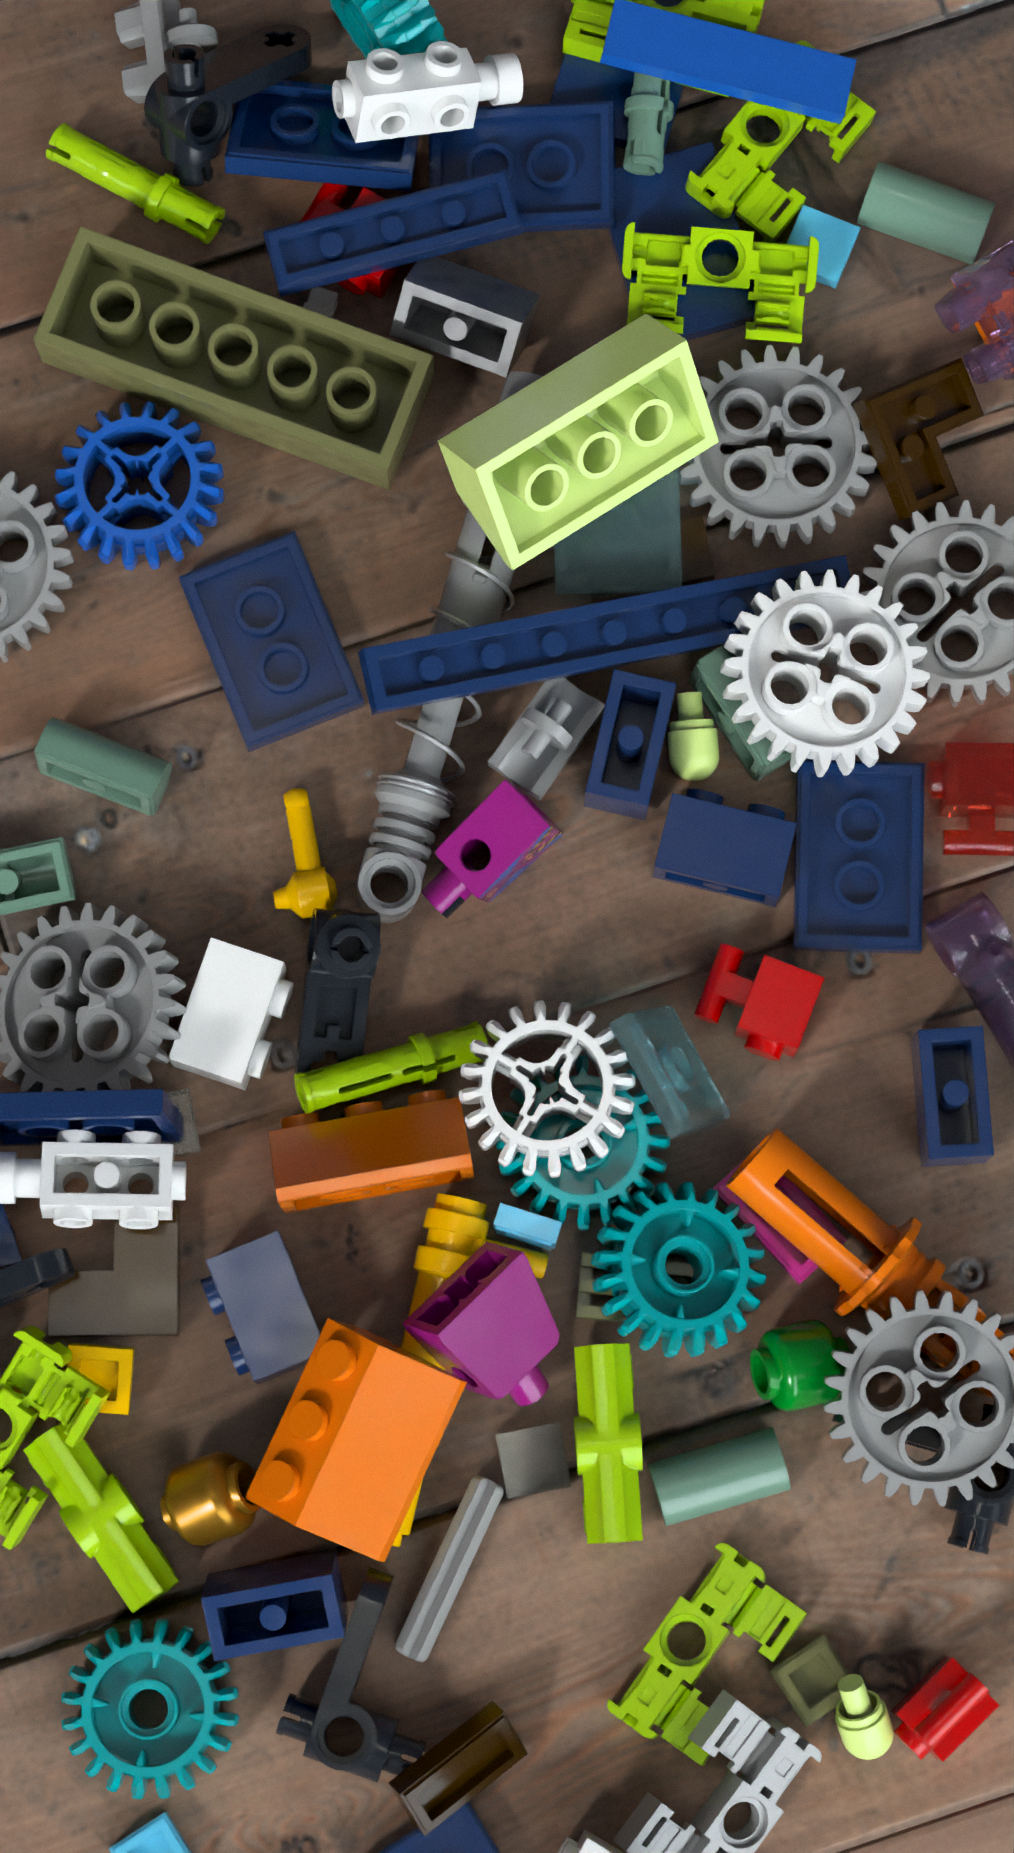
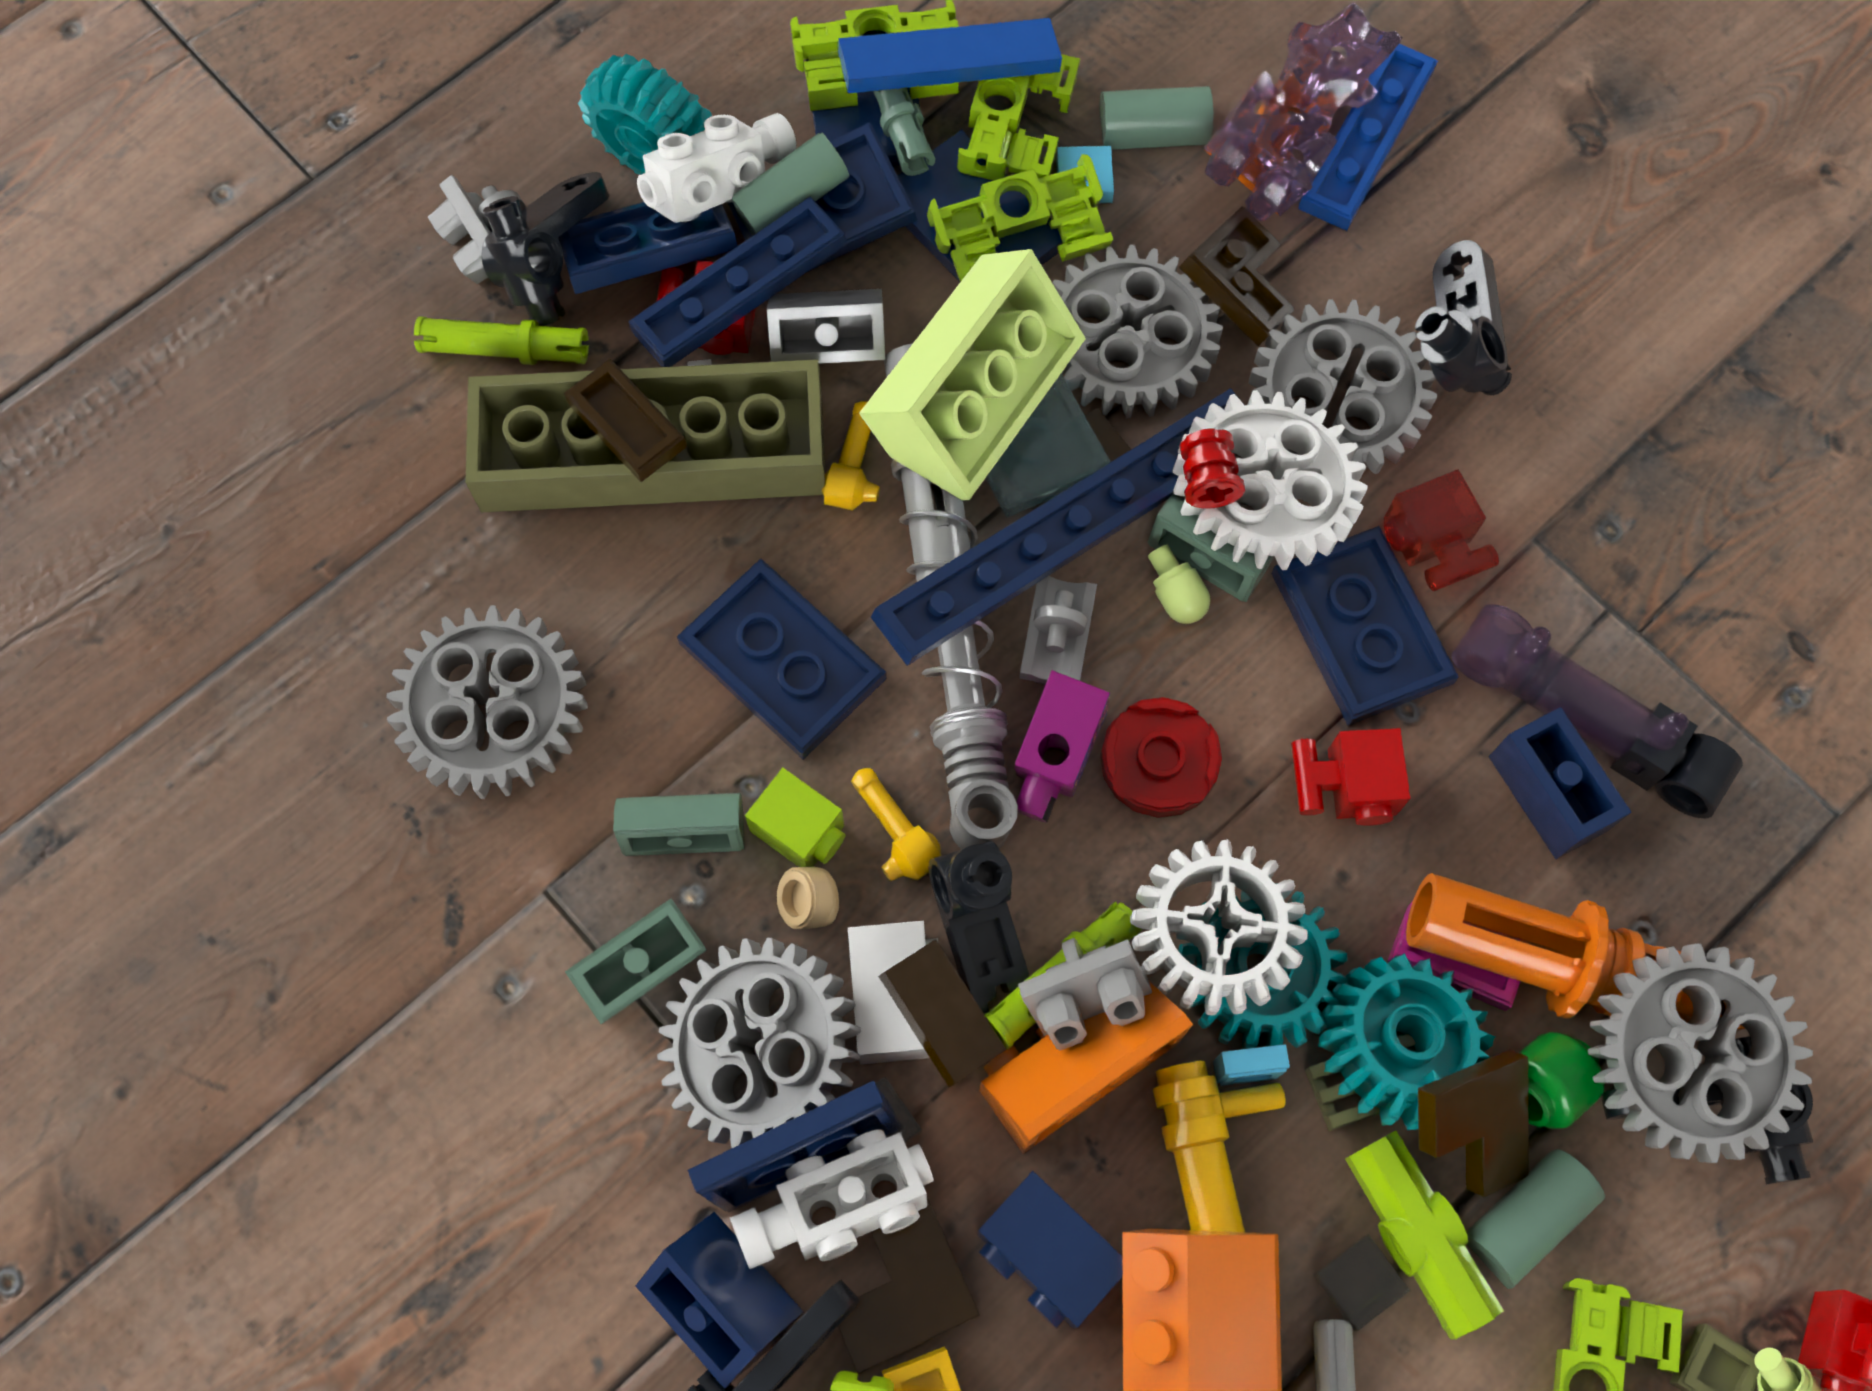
camera: 25 degrees left, 10 degrees down
(122, 506) = (574, 554): blue gear -> none
(192, 890) = (807, 898): none -> tan tile
(212, 813) = (797, 821): none -> lime brick
(213, 342) = (625, 420): none -> dark brown tile
(260, 1054) = (942, 1013): none -> dark brown tile
(395, 1088) = (1084, 987): none -> light grey hips
(413, 486) = (845, 481): none -> yellow piece
(489, 1325) = (1268, 1169): magenta torso -> none
(492, 145) = (804, 173): none -> sand green brick
(592, 901) = (1160, 757): none -> red tile
(629, 744) = (1134, 608): dark blue brick -> none
(670, 1070) = (1312, 866): clear light blue tile -> none
(712, 1358) = (1487, 1113): none -> dark brown tile
(725, 847) = (1254, 661): dark blue brick -> none
(756, 644) = (1211, 469): none -> red bush

